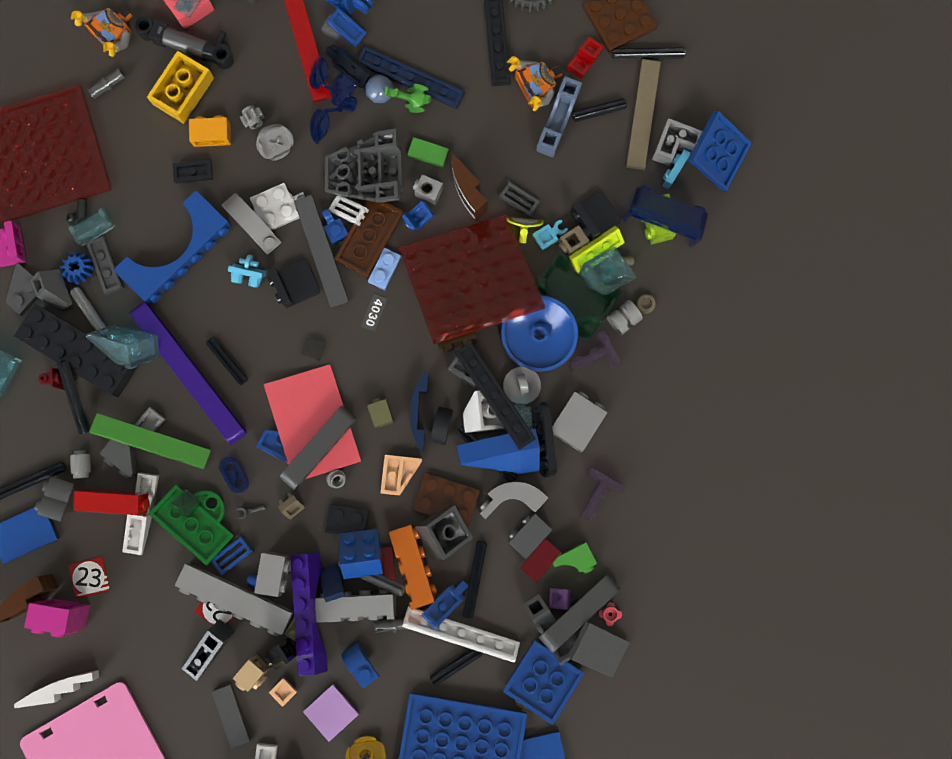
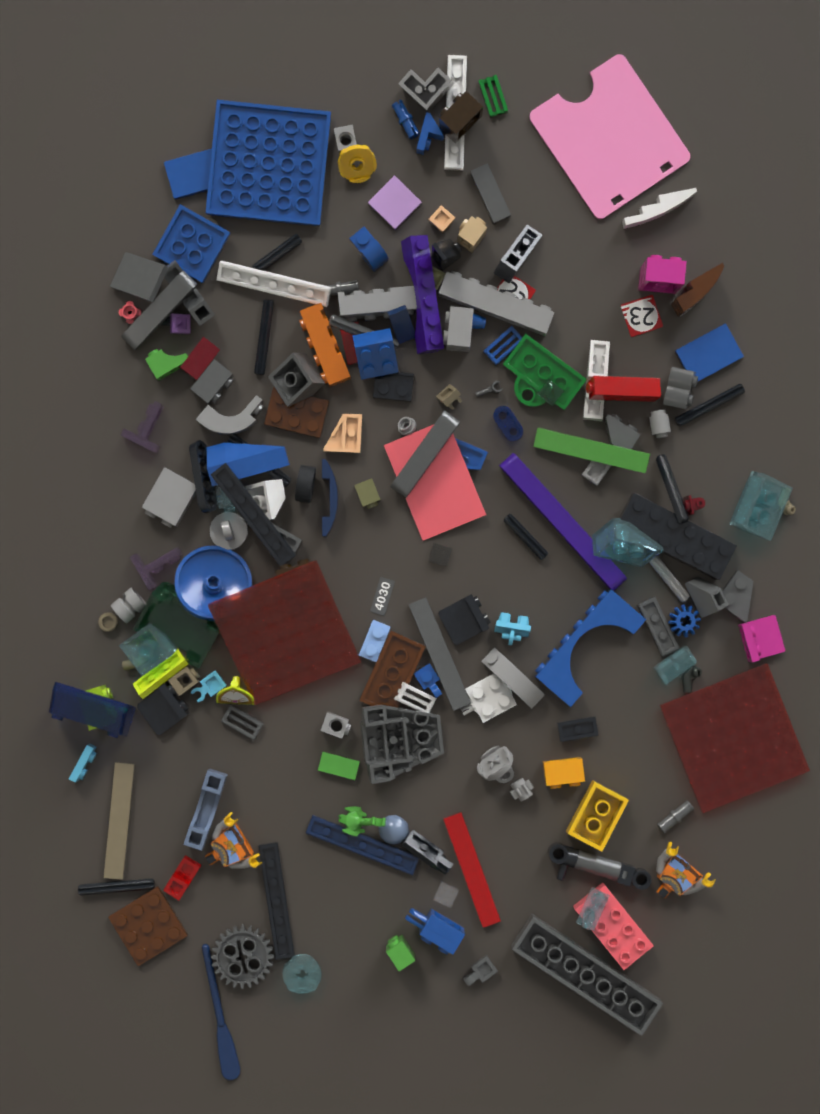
camera: 170 degrees right, 5 degrees up
(341, 91) = (426, 812): clear blue plant -> none
(346, 27) = (432, 893): blue tile -> none
(418, 216) = (343, 696): blue bracket -> none
(444, 605) = (290, 310): blue hinge -> none
(468, 189) = (295, 726): reddish brown slope -> none
(599, 110) = (164, 822): black axle -> none
(673, 138) = (86, 795): light grey brick -> none
(719, 151) = (38, 782): blue plate -> none

